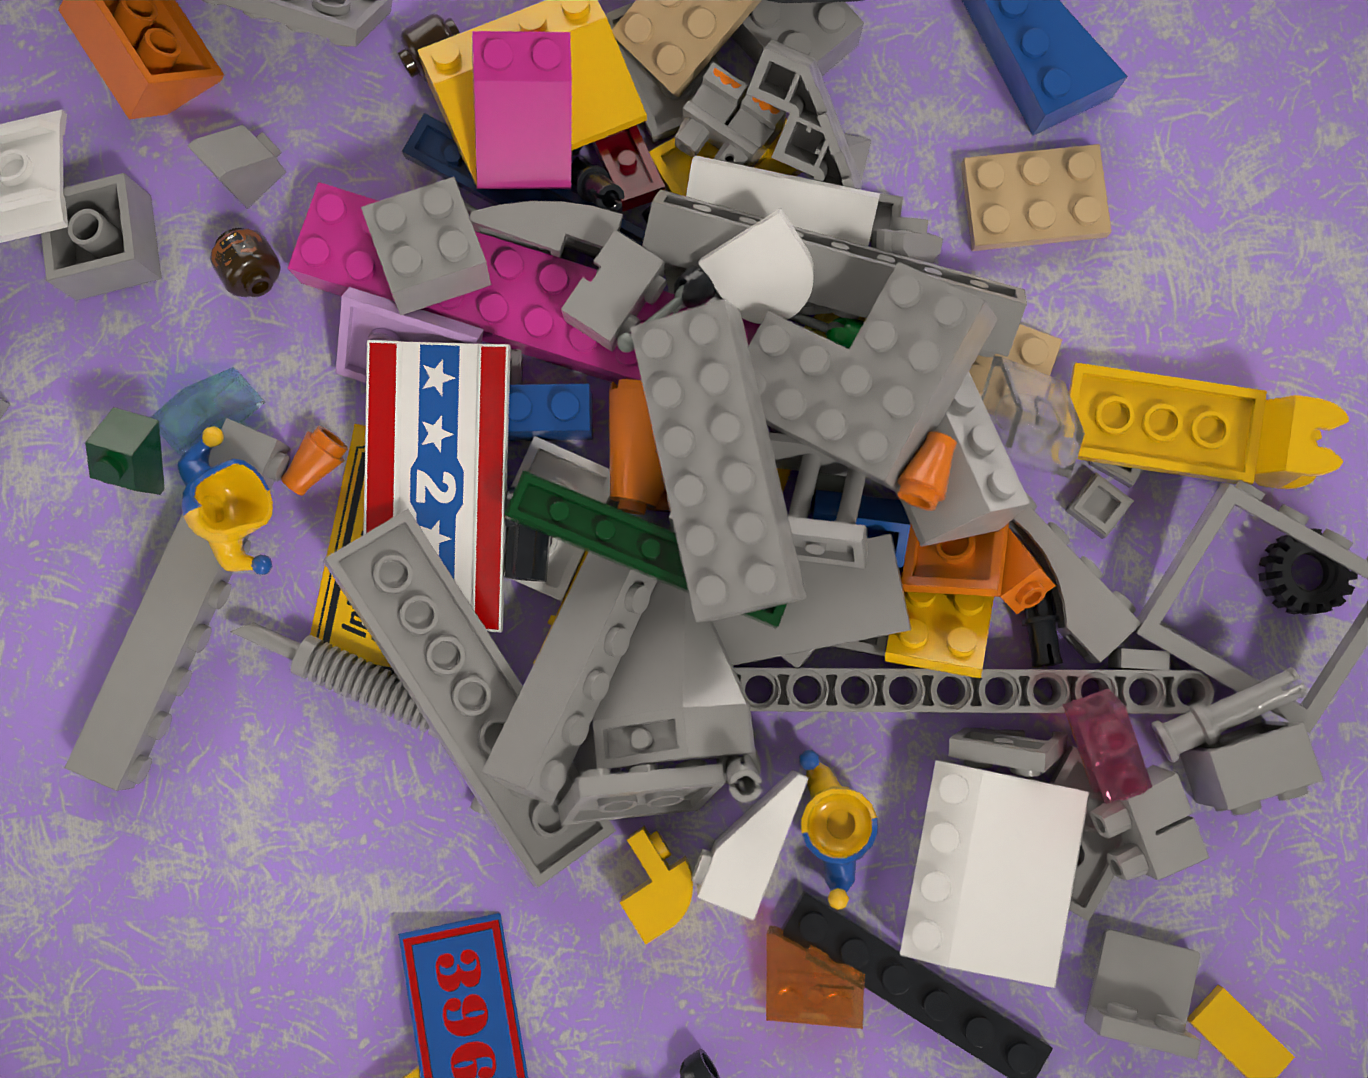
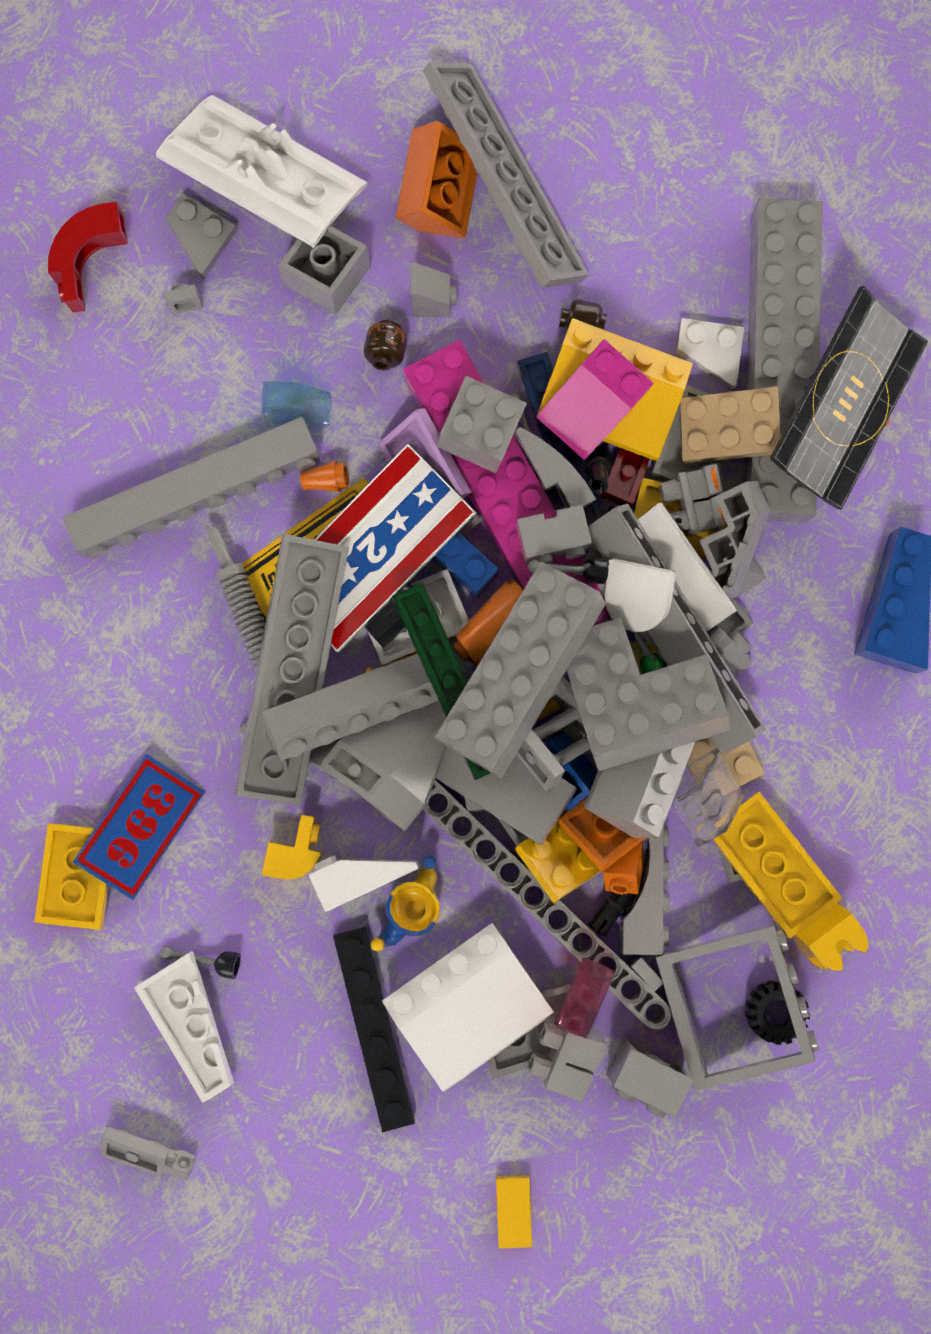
camera: 40 degrees right, 0 degrees up
(127, 452) = (237, 388): dark green slope -> none
(225, 503) = (261, 460): yellow piece -> none
(640, 792) = (330, 797): light grey plate -> none
(742, 776) = (388, 837): light grey pin -> none
(810, 987) = (323, 975): clear orange wing -> none
(928, 473) = (619, 774): orange cone -> none
(1007, 748) = (535, 953): light grey wing -> none
(1036, 197) = (823, 688): tan plate -> none
(1099, 505) = (702, 876): light grey tile -> none
(1144, 993) = (487, 1140): light grey bracket -> none
(1206, 723) = (646, 1035): light grey pin -> none

